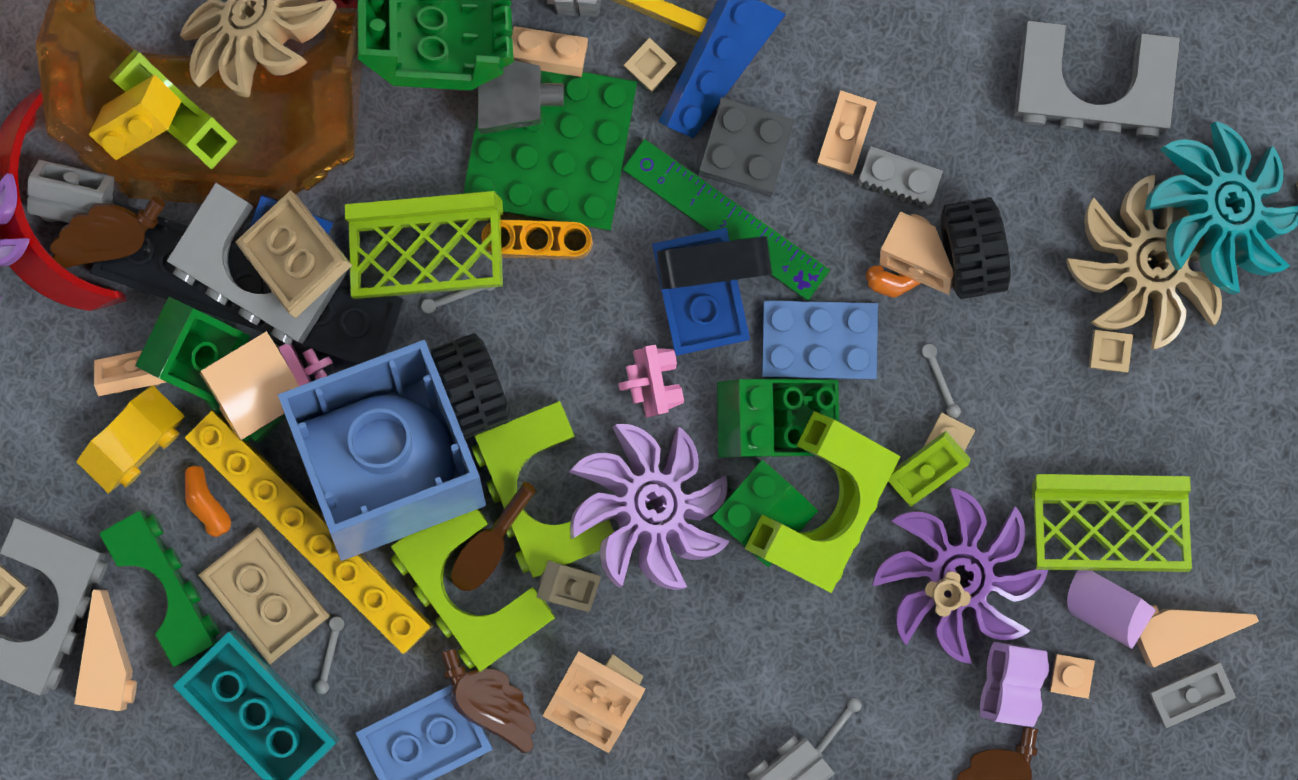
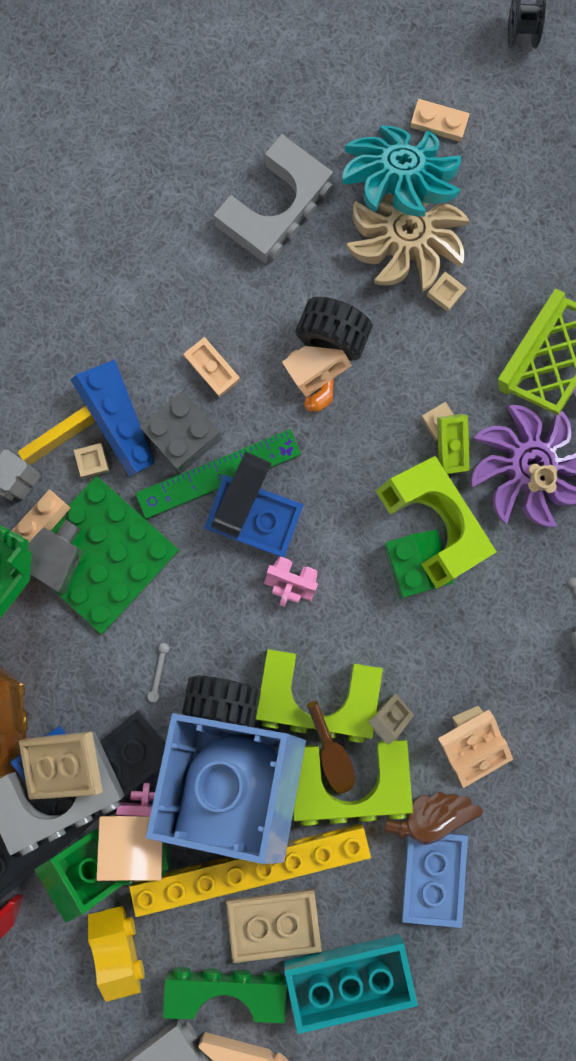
camera: 60 degrees left, 5 degrees down
(120, 374) = (67, 935): light nougat plate -> none
(203, 503) = (188, 930): orange arm -> none
(336, 624) = (322, 888): light grey hinge -> none
(431, 213) = (89, 662): lime fence -> none
(555, 247) = (142, 606): light orange beam -> none
(630, 510) = (354, 636): lavender piece -> none
(770, 415) = (359, 521): green slope -> none
(820, 340) = (330, 462): medium blue plate -> none
(899, 177) = (260, 351): light grey brick -> none
(929, 352) = (378, 401): light grey hinge -> none

